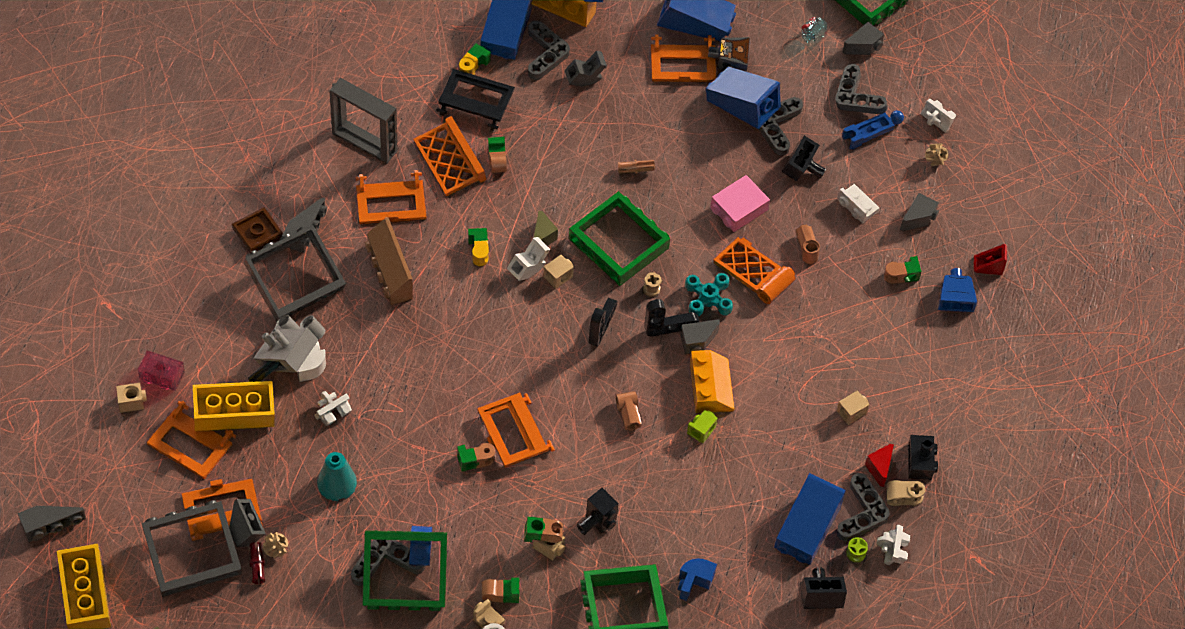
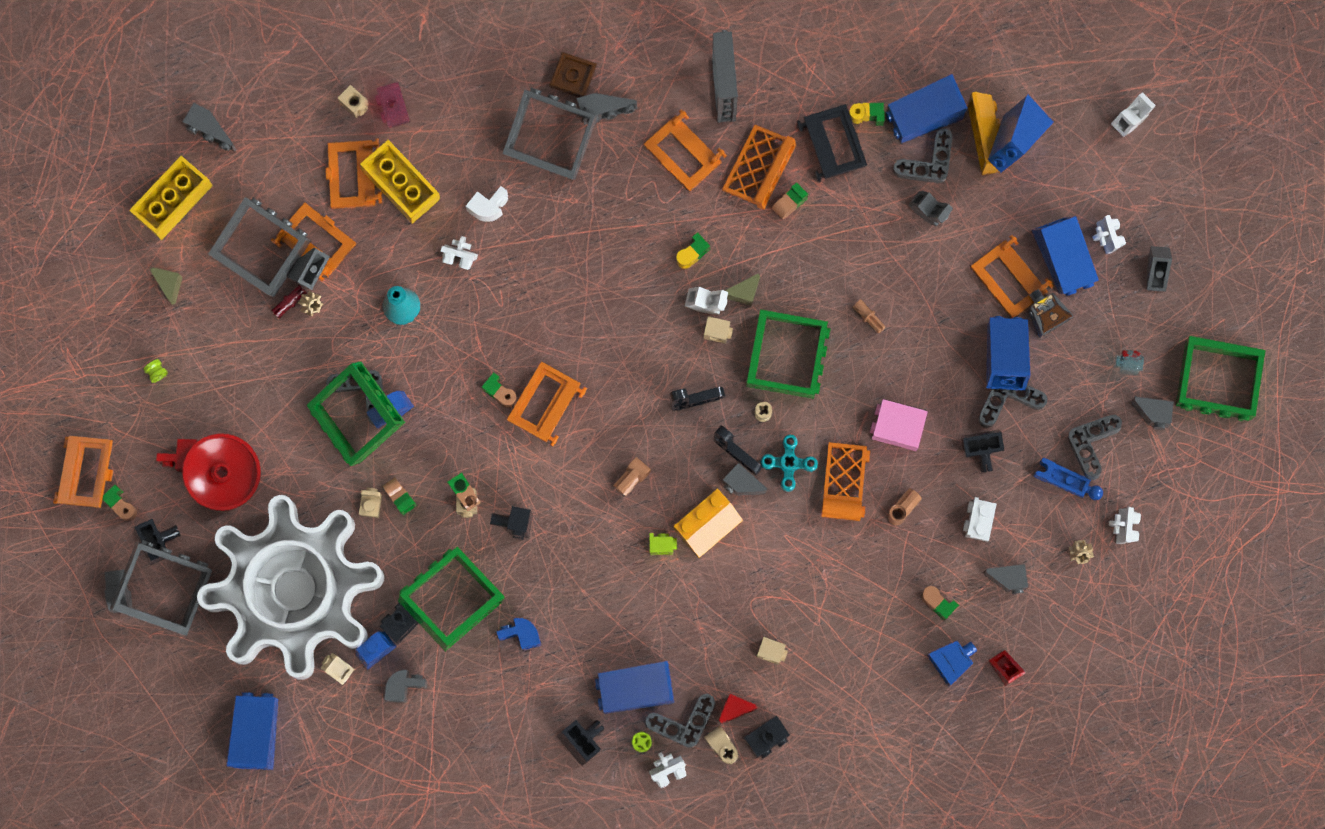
camera: 60 degrees right, 20 degrees up
(286, 346) = (479, 180): light grey piece -> none
(390, 263) = (619, 197): medium nougat slope -> none

